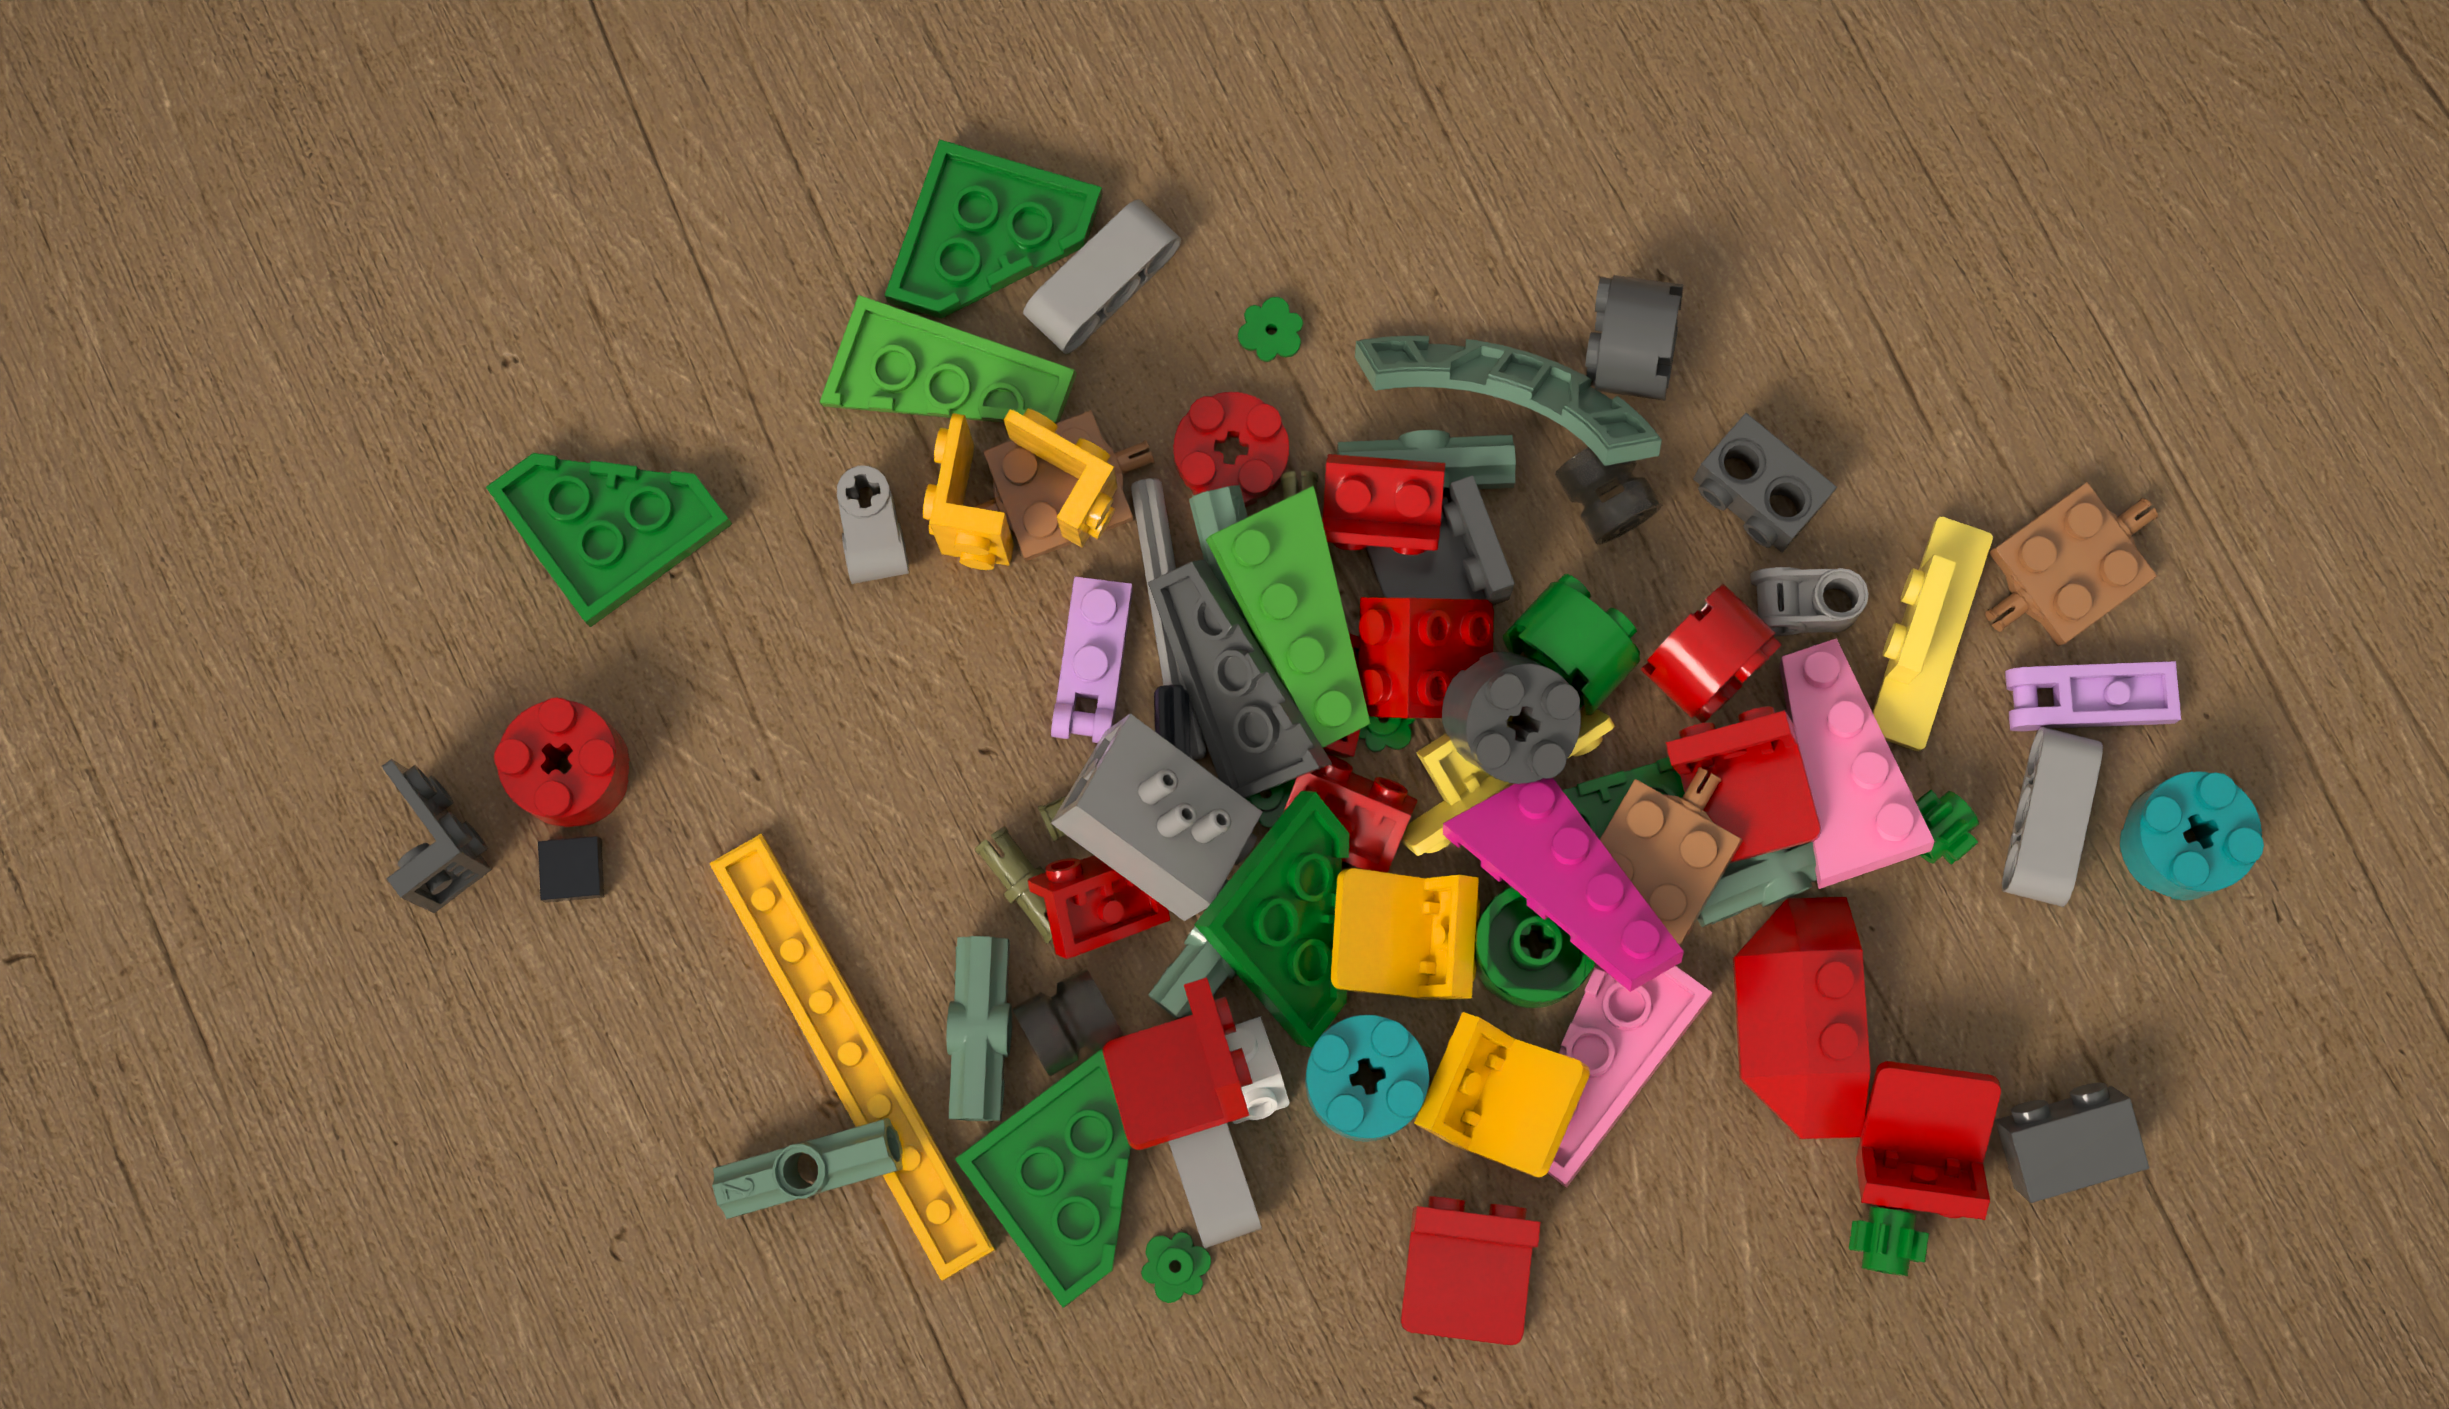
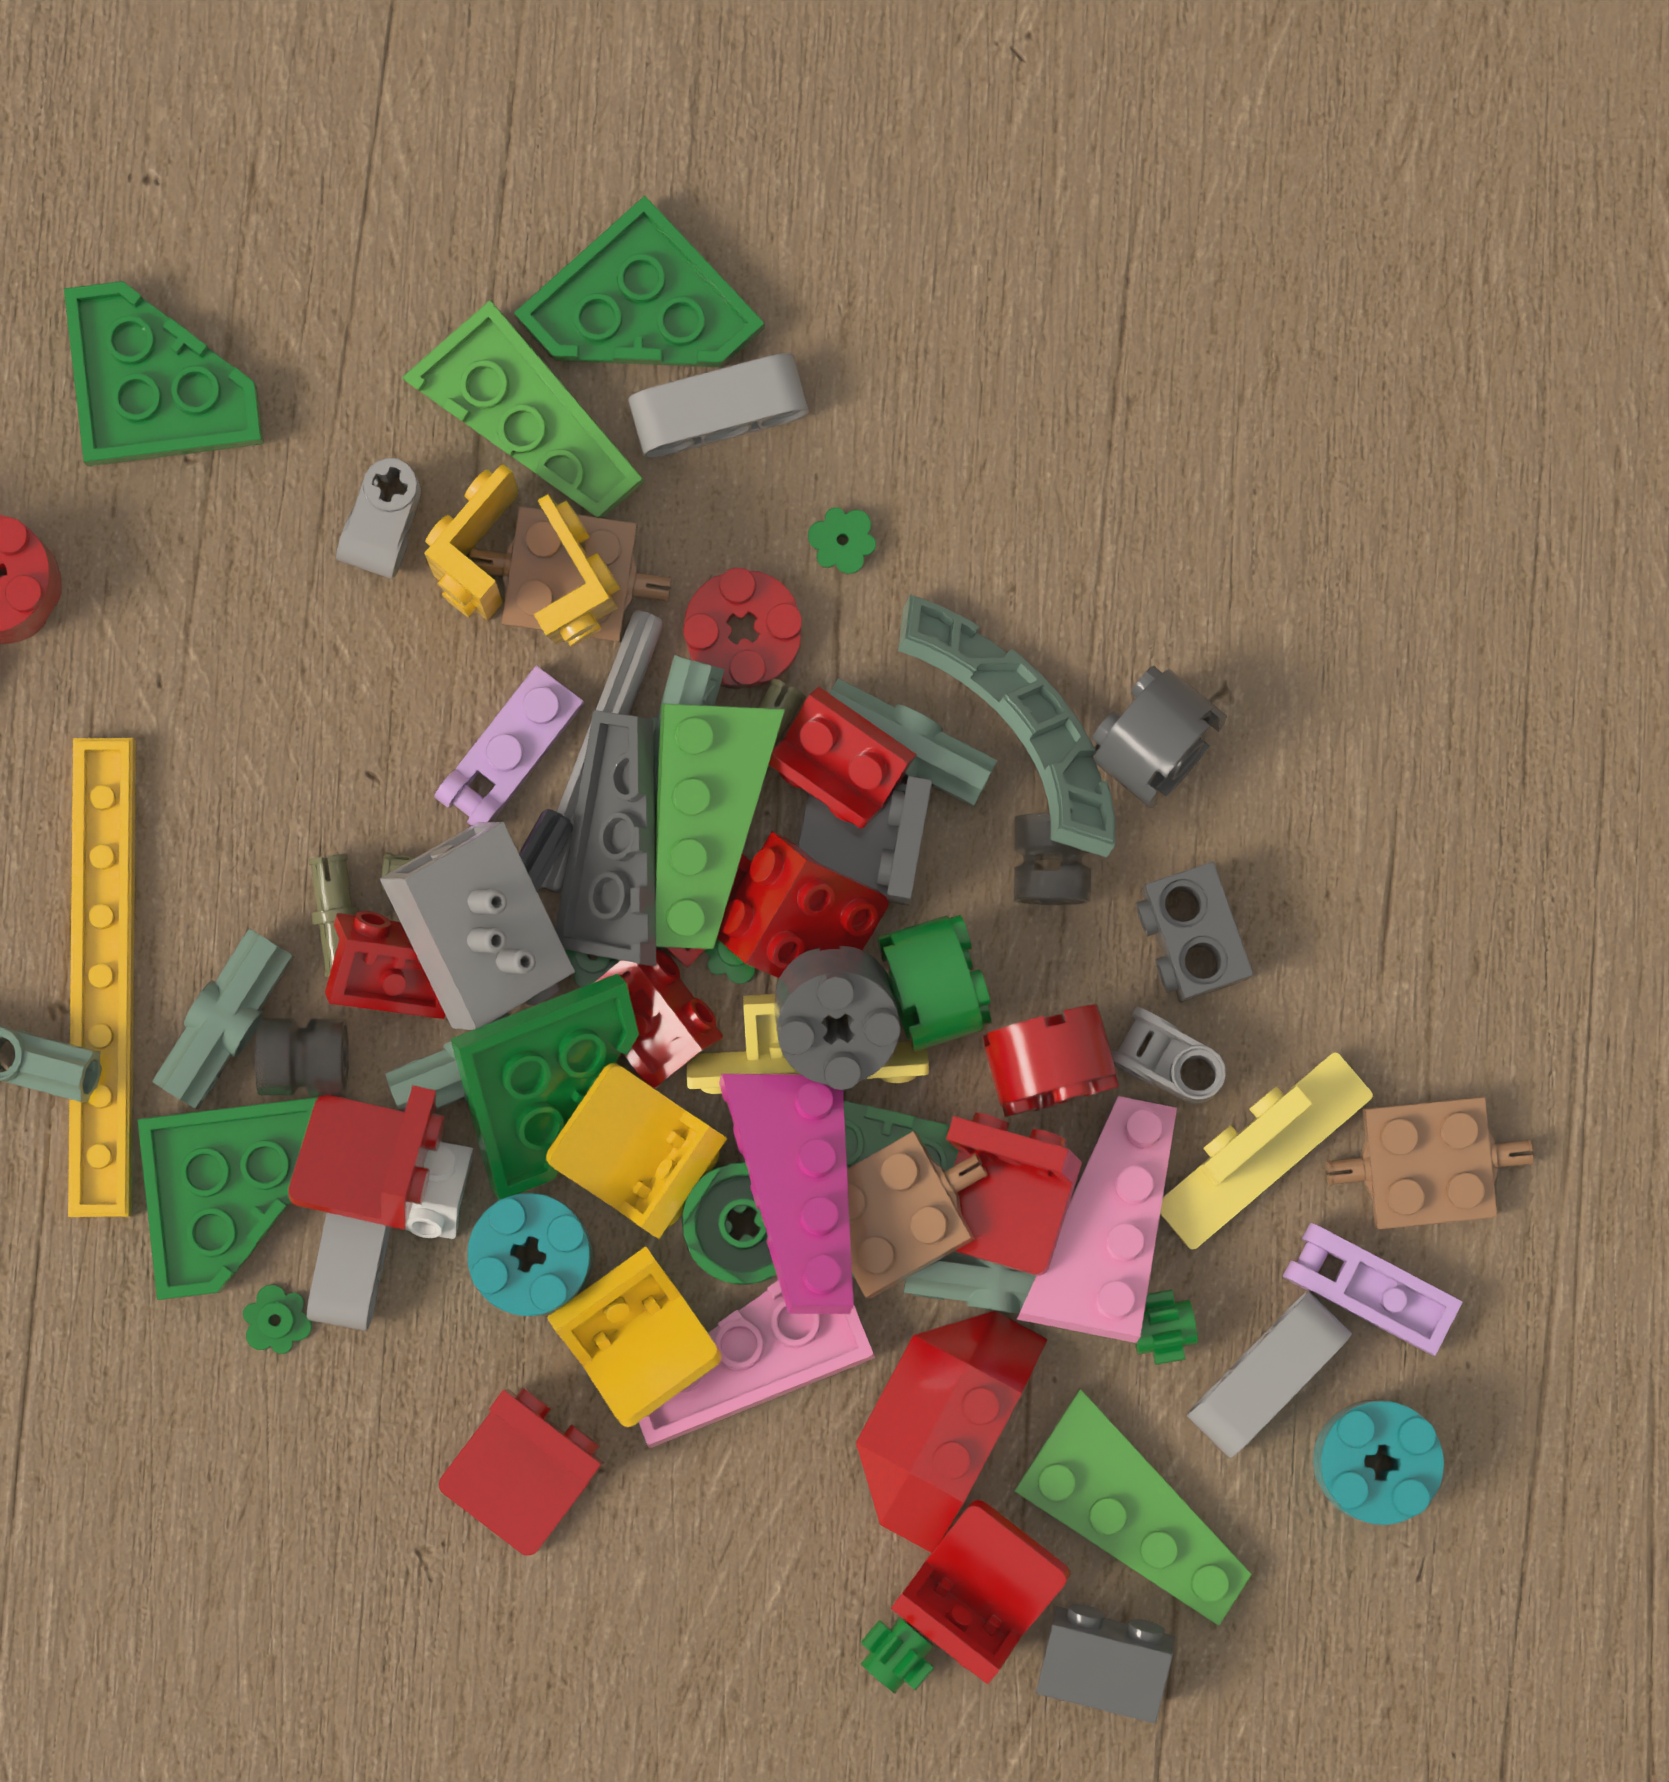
camera: 25 degrees right, 5 degrees up
(1993, 1000) = (1120, 1503): none -> bright green wing

